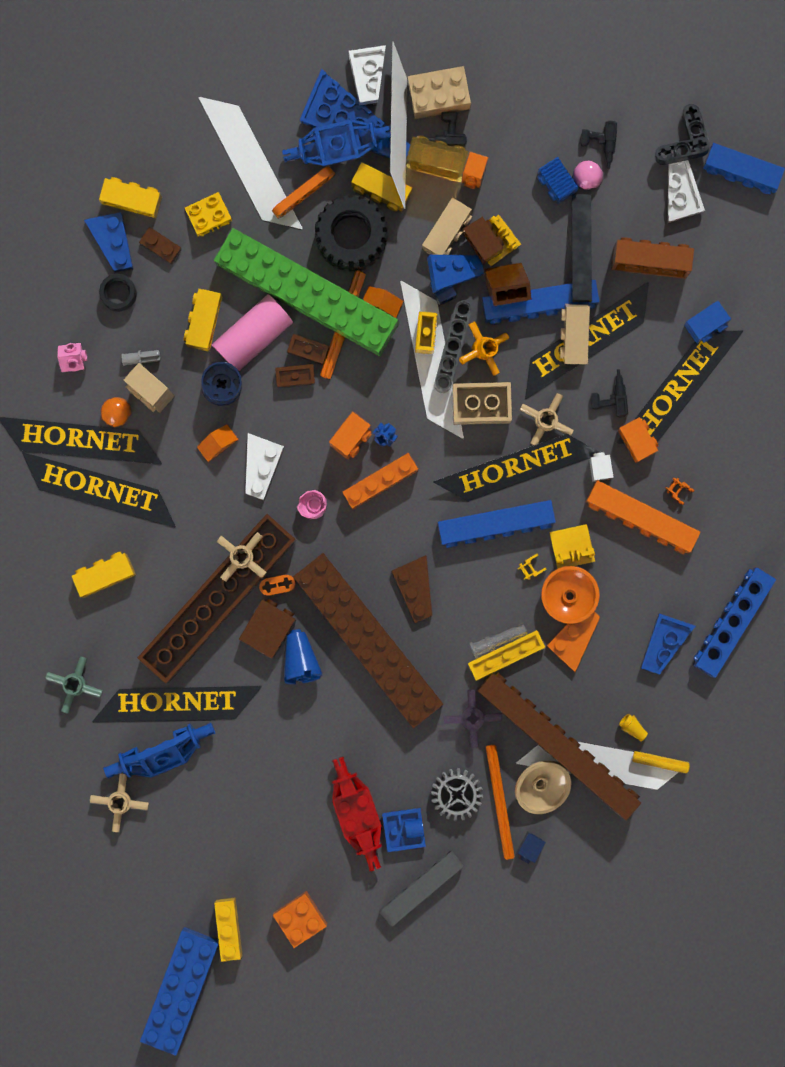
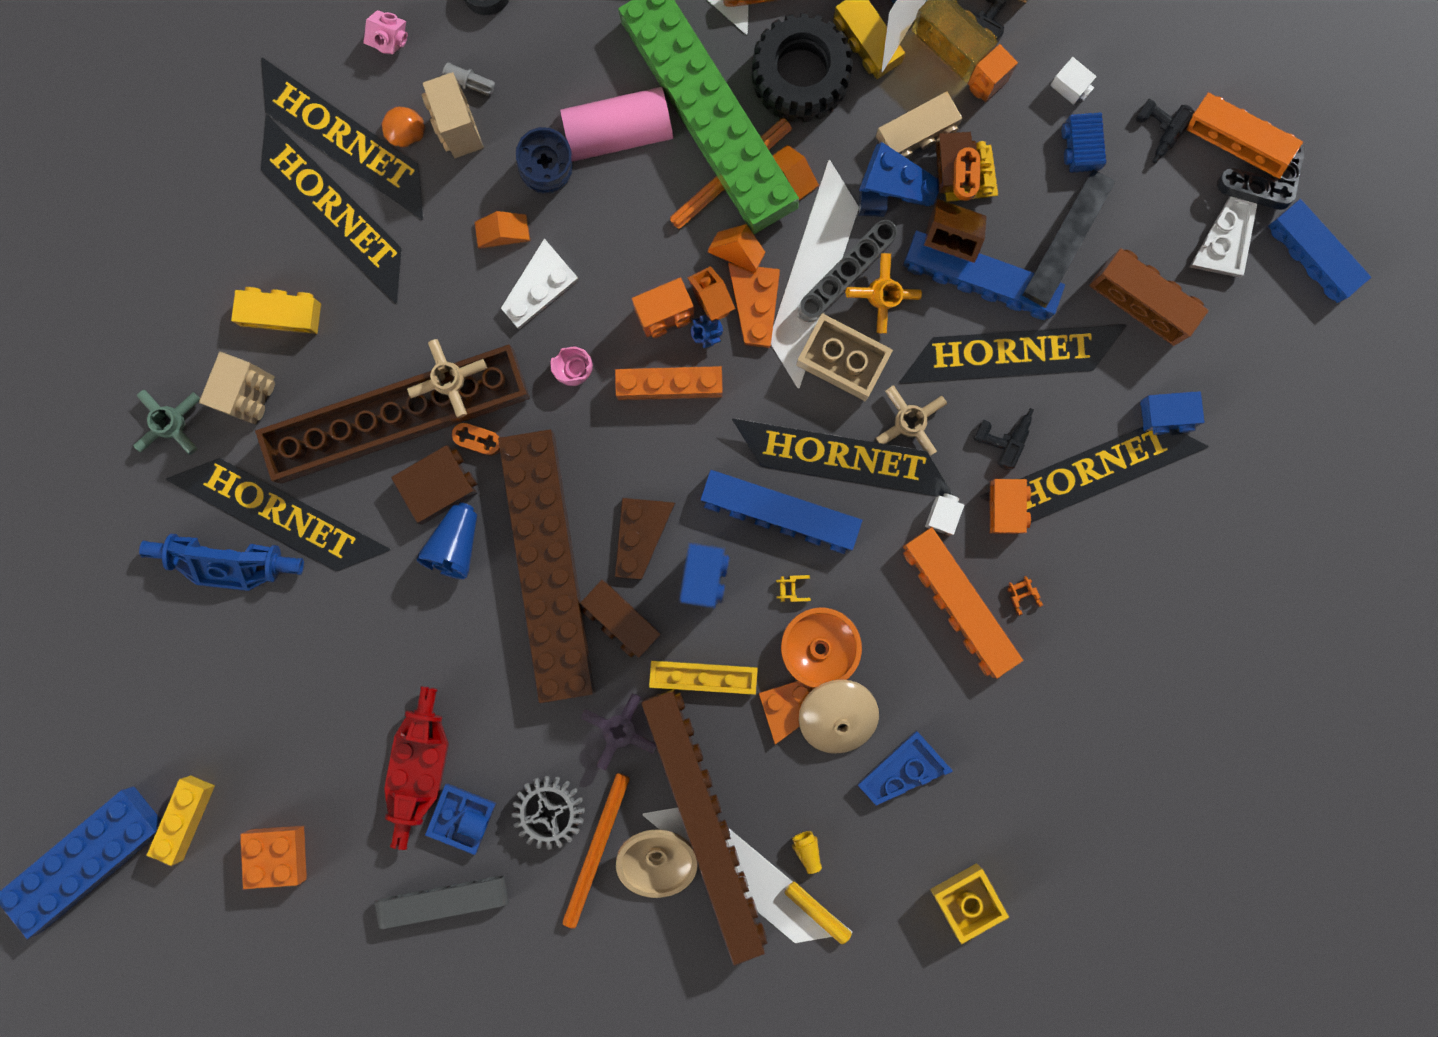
camera: 25 degrees right, 0 degrees up
(112, 637) = (238, 388): none -> tan brick
(120, 793) = (129, 595): tan bar -> none
(203, 319) = (567, 74): yellow brick -> none
(295, 375) = (639, 201): reddish brown plate -> none
(308, 349) = (672, 178): reddish brown plate -> none
(375, 370) = (738, 247): none -> orange slope
(375, 410) = (711, 293): none -> orange brick
(405, 398) = (755, 302): none -> orange wing
(426, 332) = (824, 235): yellow brick -> none
(433, 648) = (619, 619): none -> reddish brown brick
(474, 590) = (703, 575): none -> blue brick
(489, 643) = (690, 651): clear pin -> none
(499, 243) = (972, 174): none -> orange beam
(529, 145) = (1074, 81): none -> white brick
(530, 848) = (601, 928): dark blue brick -> none
(572, 546) = (857, 591): yellow hinge -> none
(575, 333) = (1004, 335): tan brick -> none
(587, 175) = (1125, 156): bright pink hair -> none
(597, 627) = (837, 704): none -> tan dish
(655, 121) = (1244, 135): none -> orange brick
(751, 702) = (969, 903): none -> yellow brick
(764, 583) = (1065, 766): blue brick -> none

